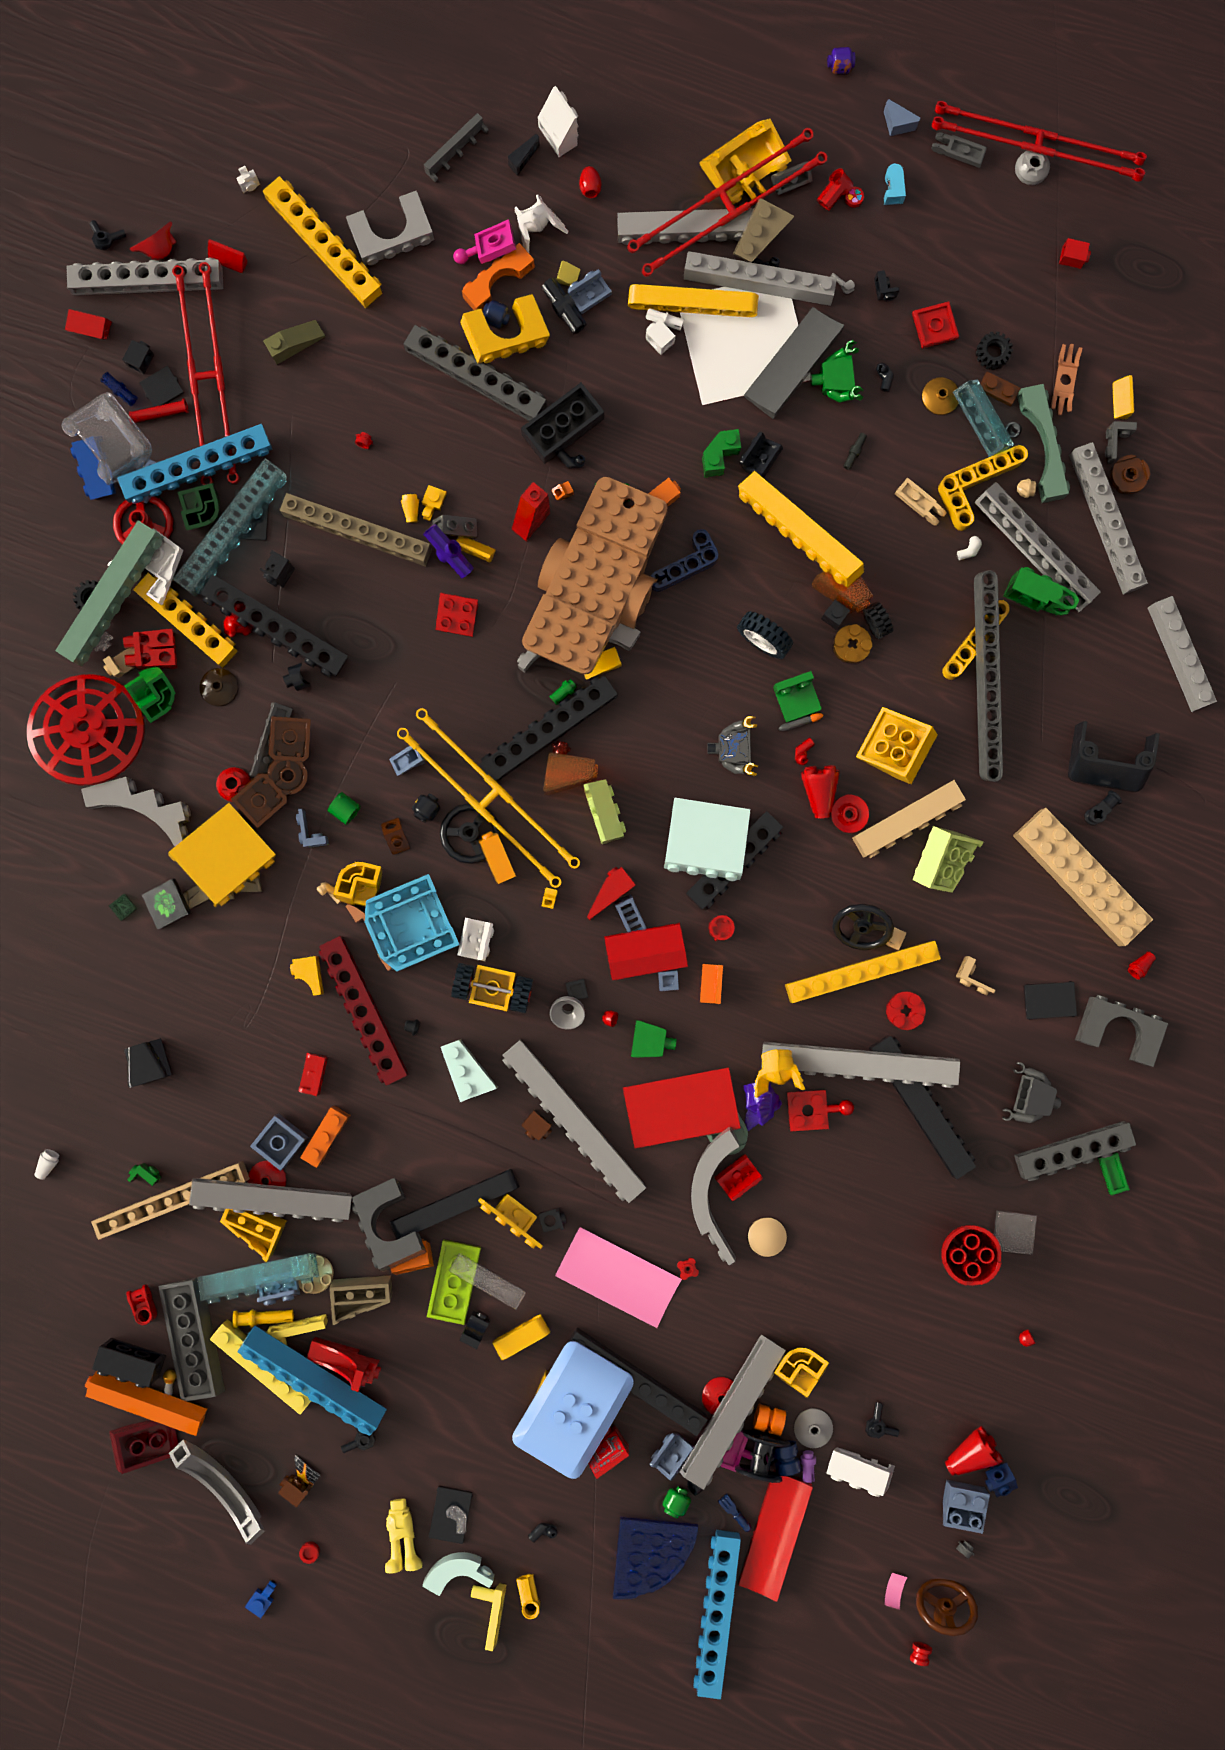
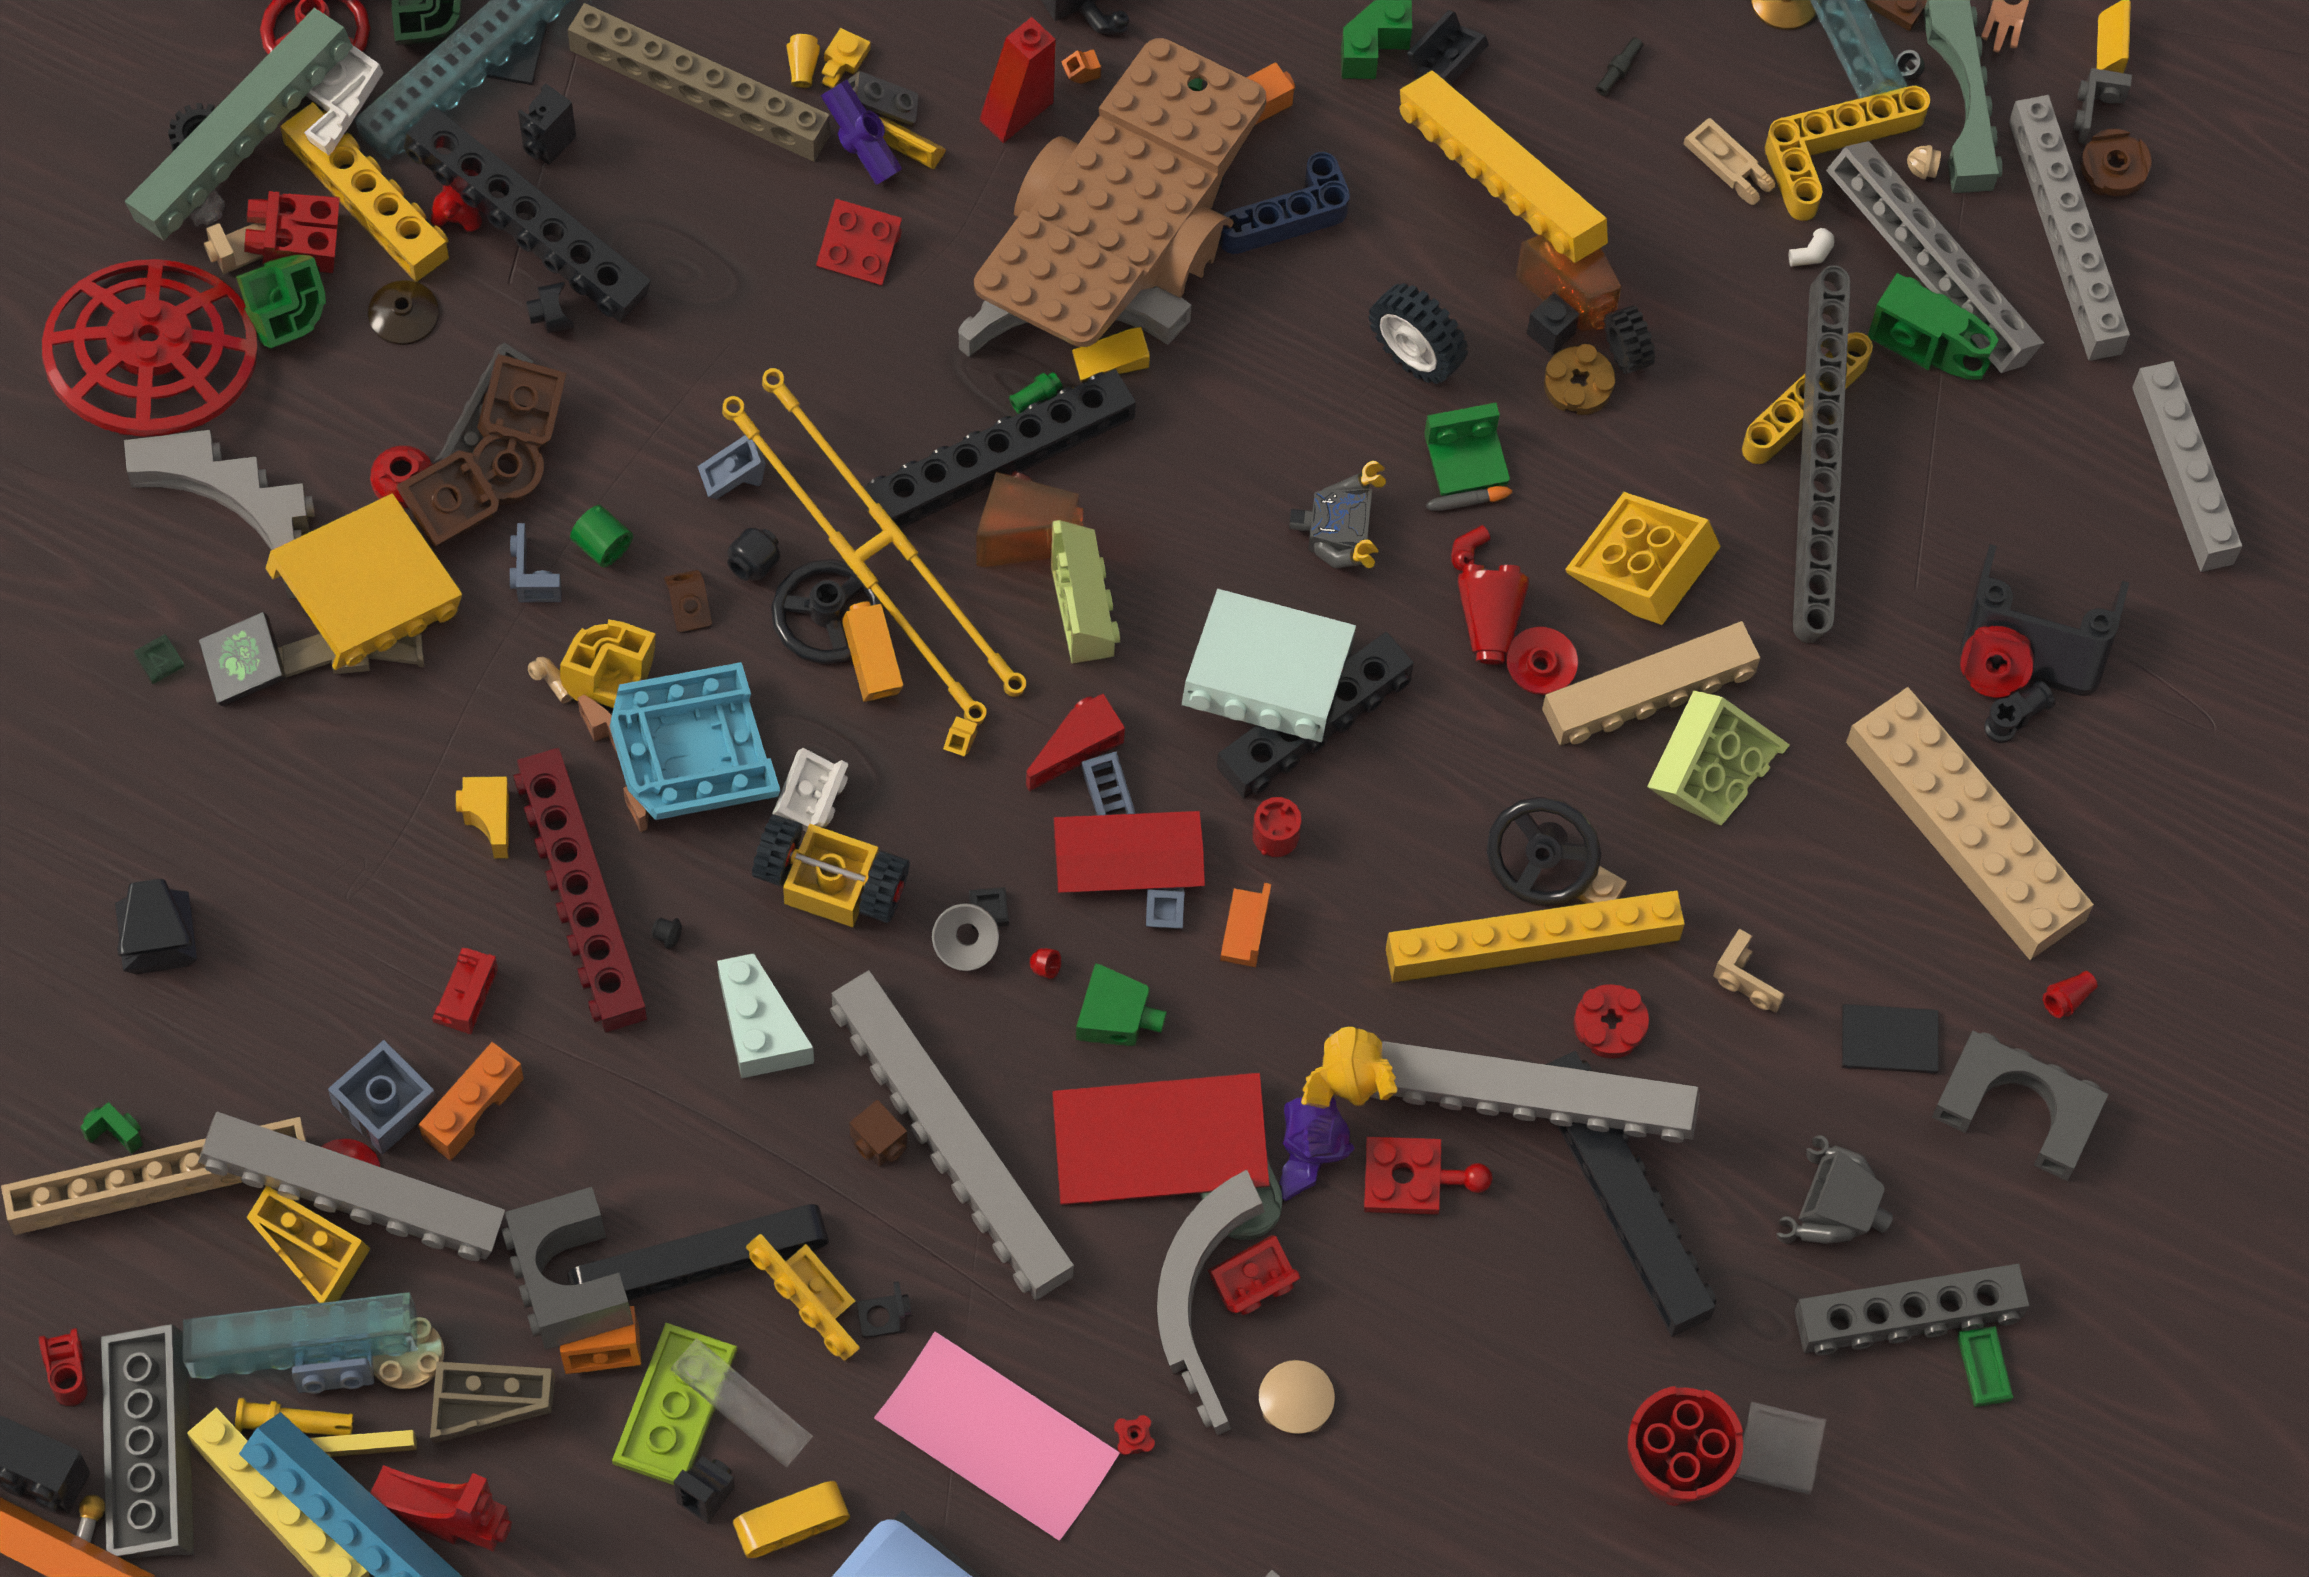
camera: 10 degrees right, 20 degrees down
(1083, 777) = (1997, 641): none -> red plate

